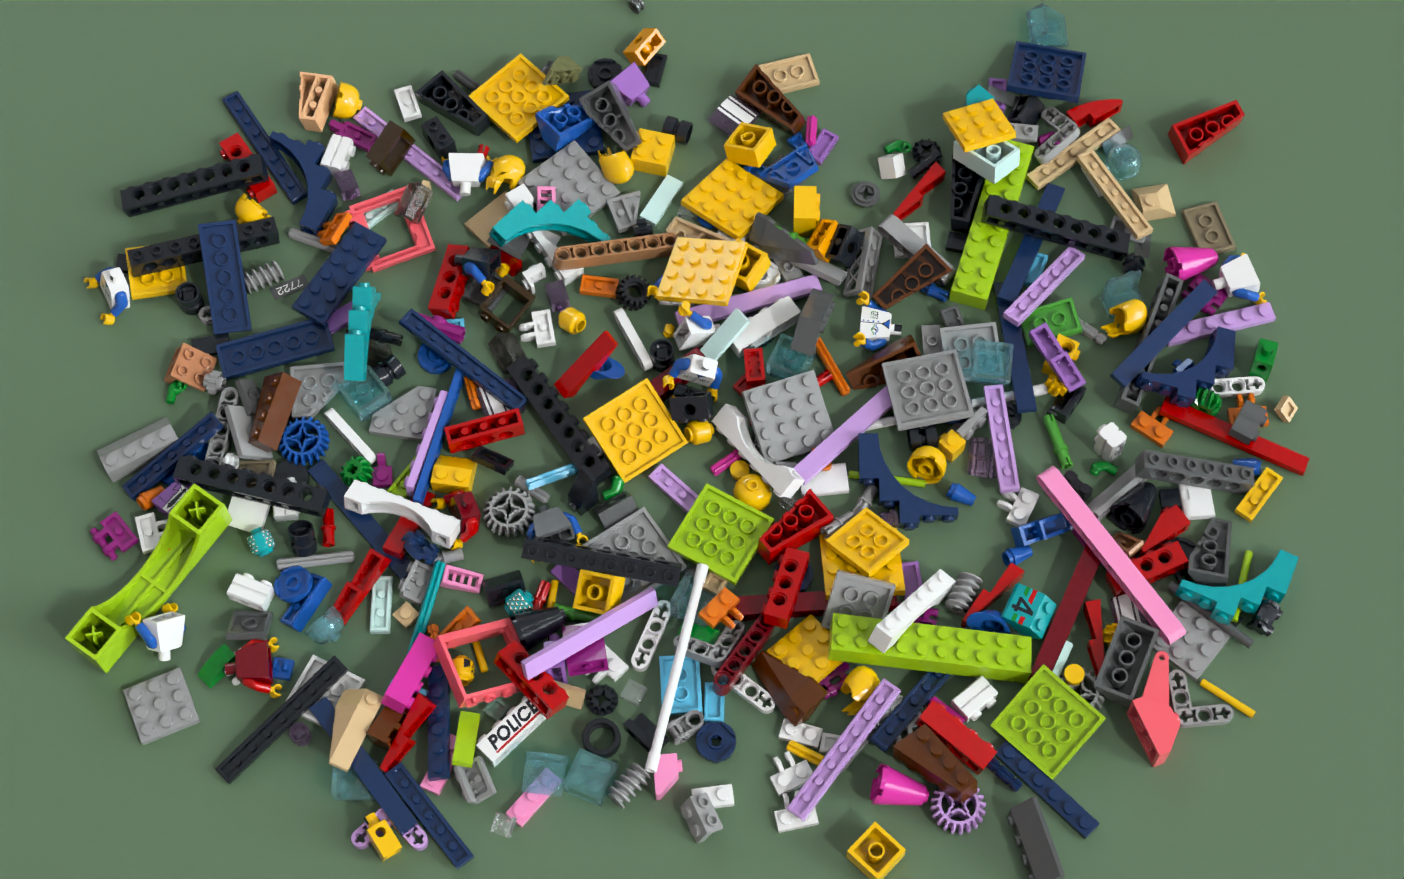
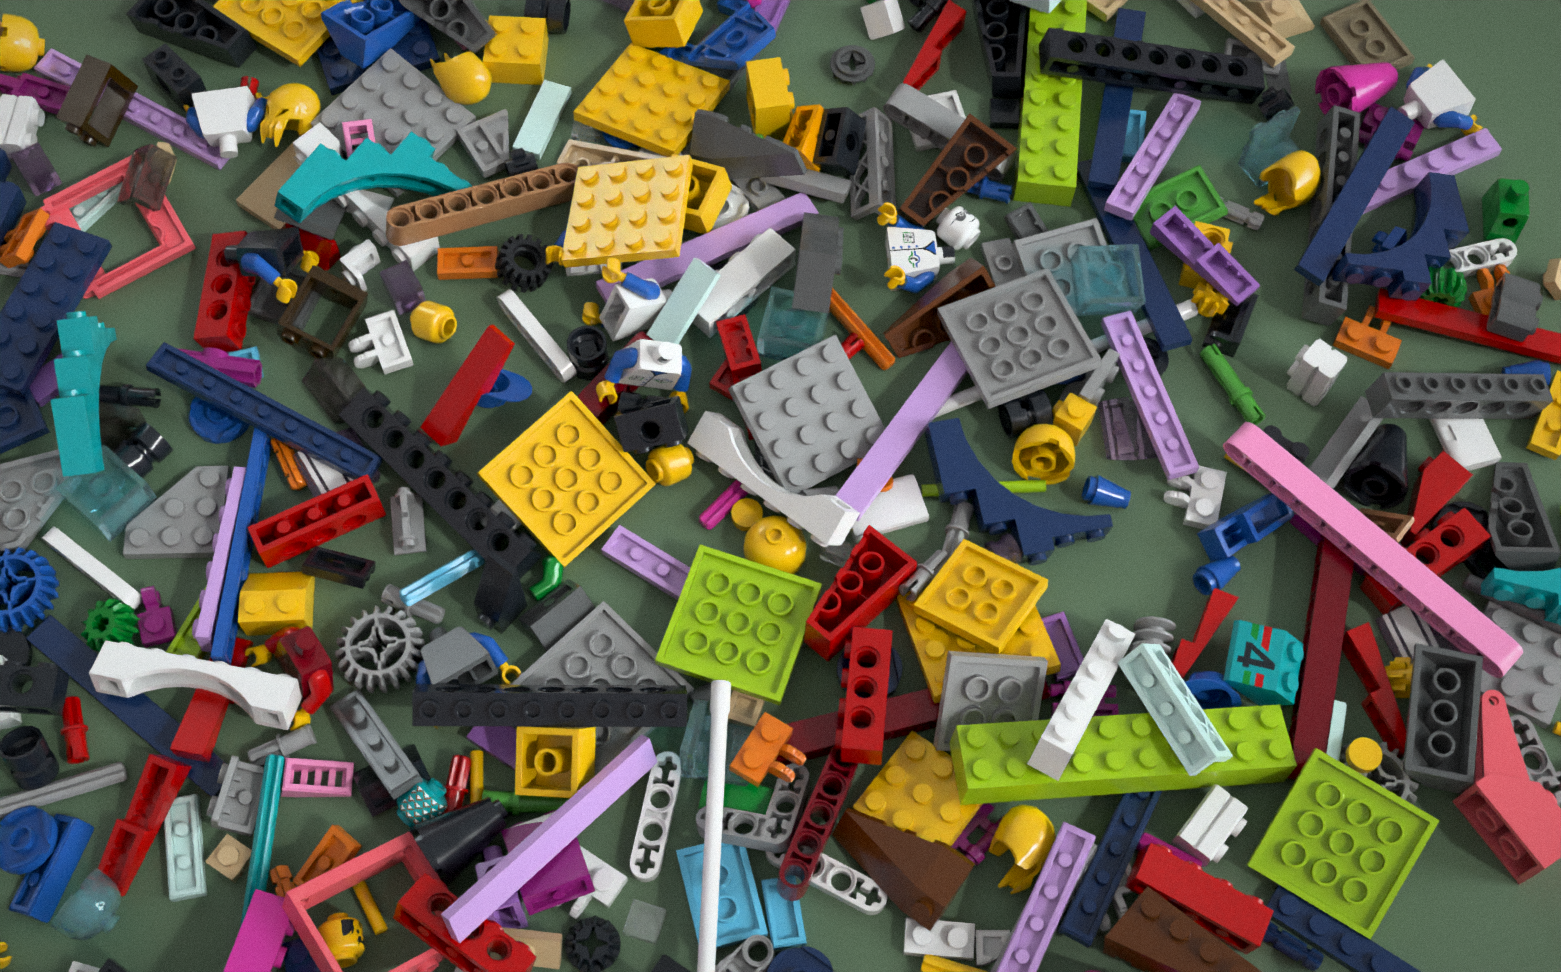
camera: 15 degrees left, 0 degrees up
(408, 103) = (119, 34): white plate -> none
(420, 547) = (235, 737): dark blue plate -> none
(498, 565) = (376, 744): none -> tile
(537, 440) = (407, 522): none -> light grey hinge
(907, 313) = (958, 227): none -> white head
(963, 625) = (1174, 708): none -> light aqua fence
(1099, 466) = (1312, 410): green arm -> none
(1169, 498) = (1424, 443): black tile -> none

